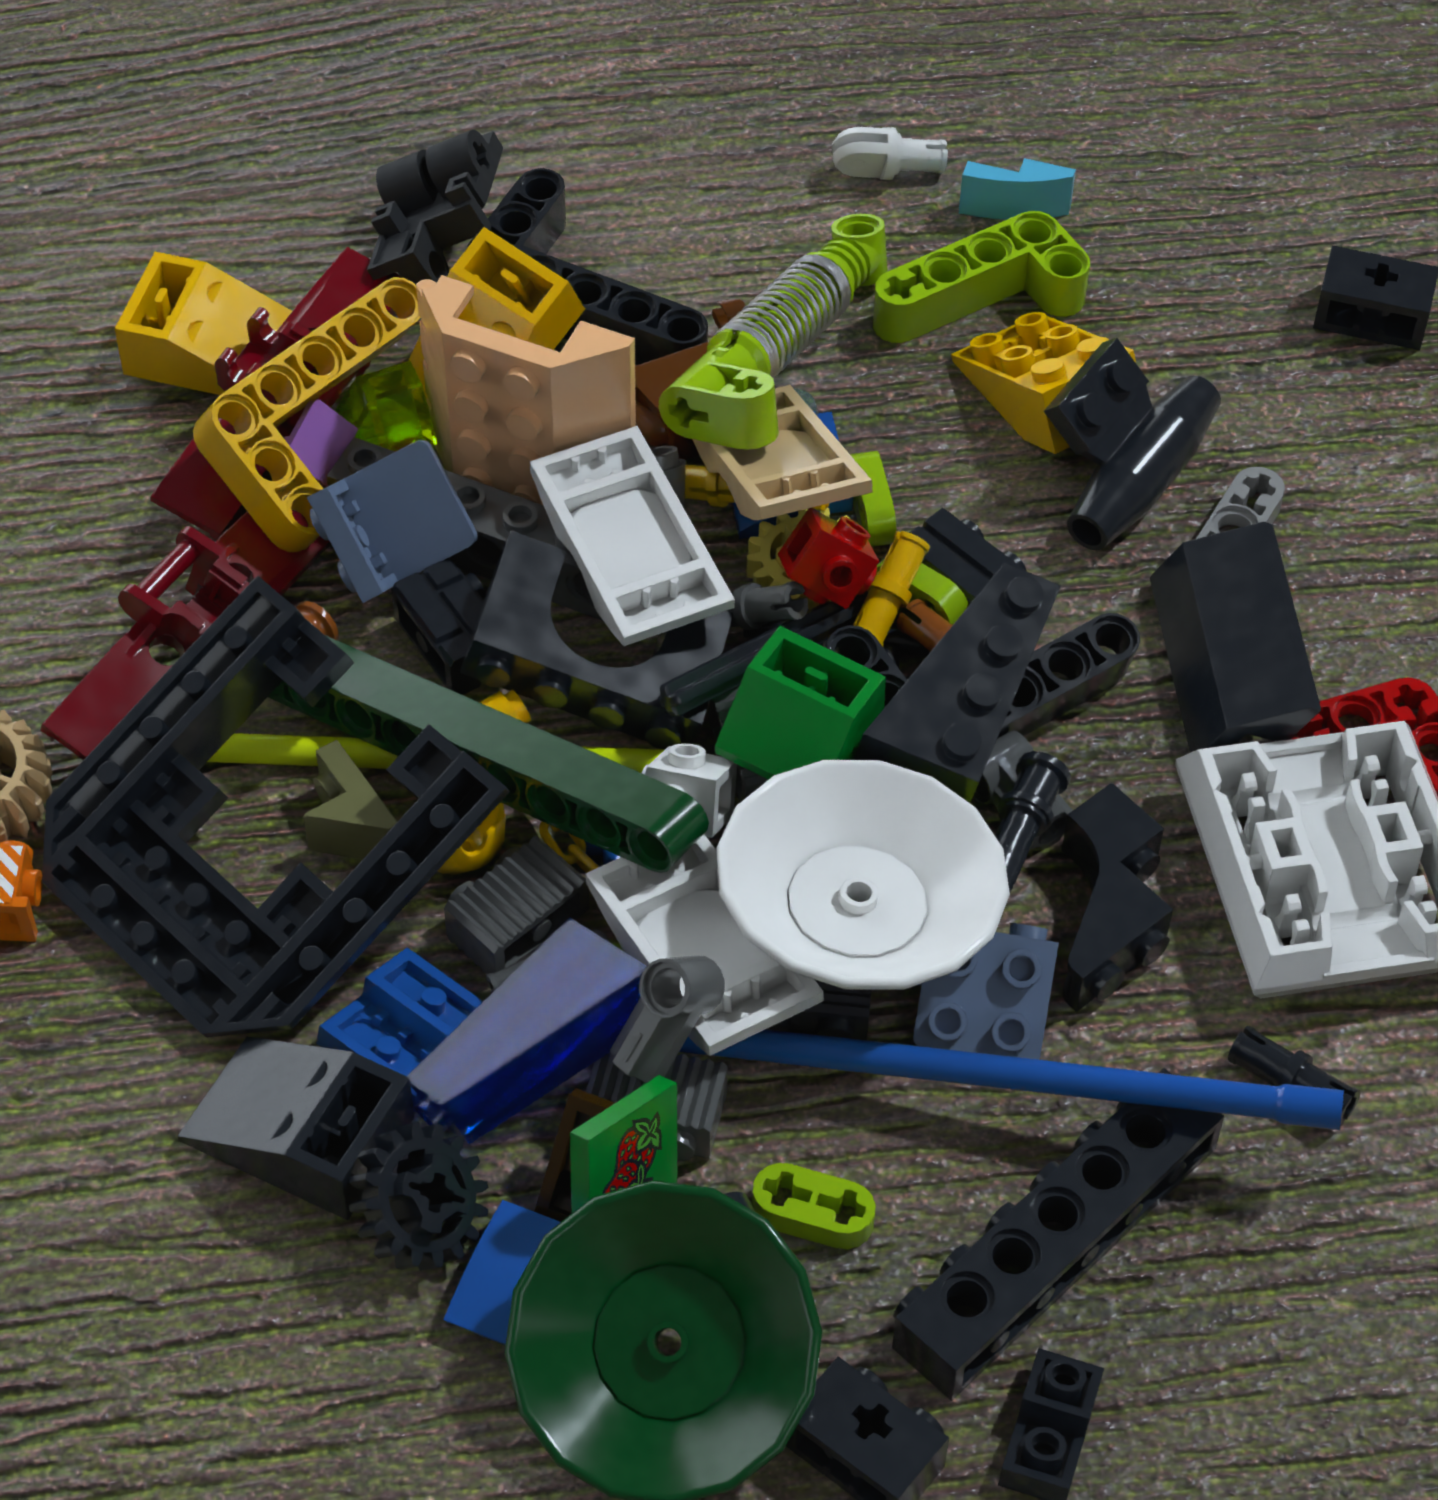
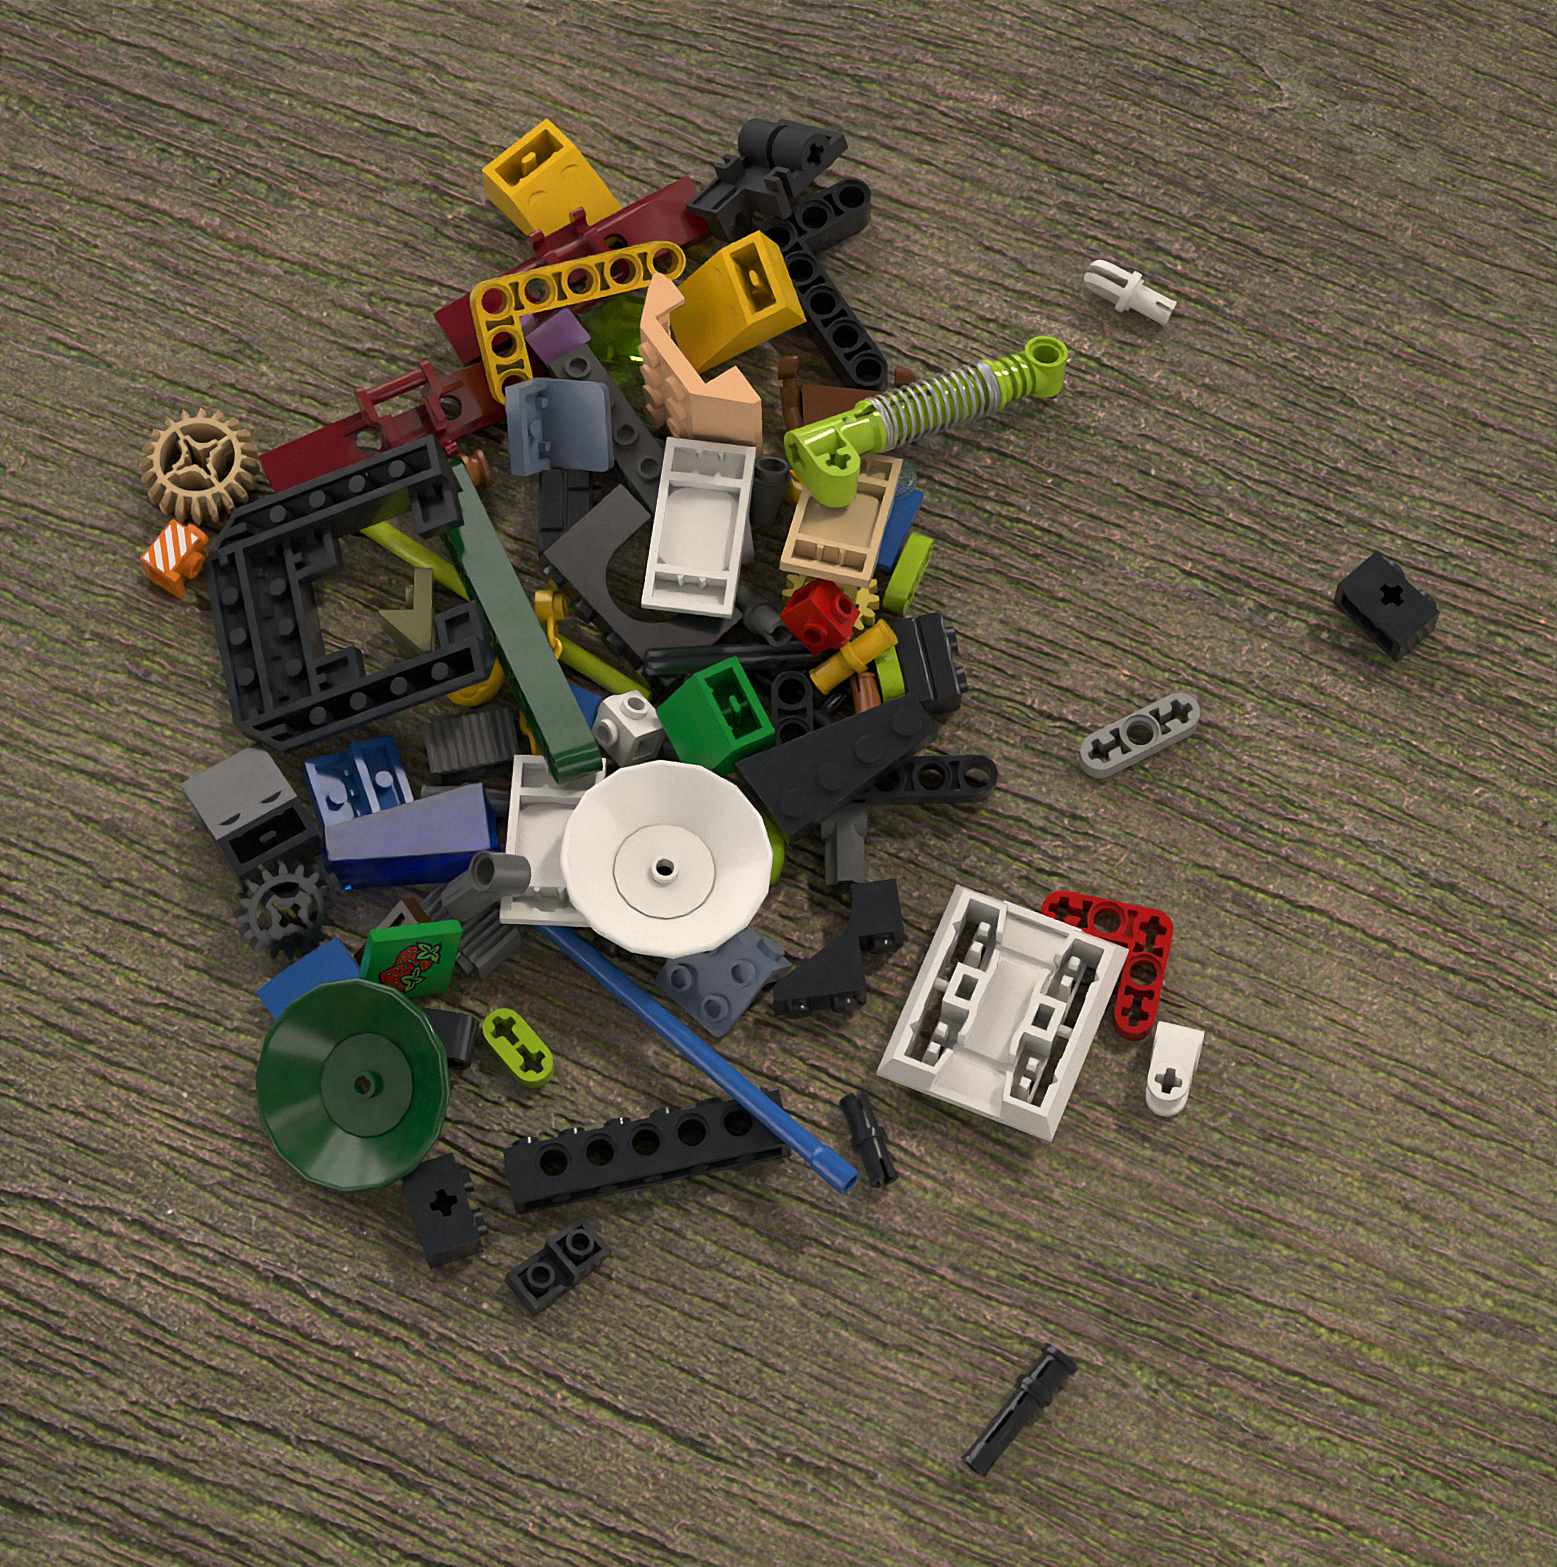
camera: 35 degrees right, 15 degrees up
(979, 270) = (1108, 440): lime beam -> none
(1006, 193) = (1206, 381): medium azure slope -> none
(1026, 369) = (1102, 545): yellow slope -> none
(1027, 808) = (814, 872): black pin -> none
(1134, 442) = (1106, 628): black plate -> none
(1234, 639) = (1060, 820): black slope -> none

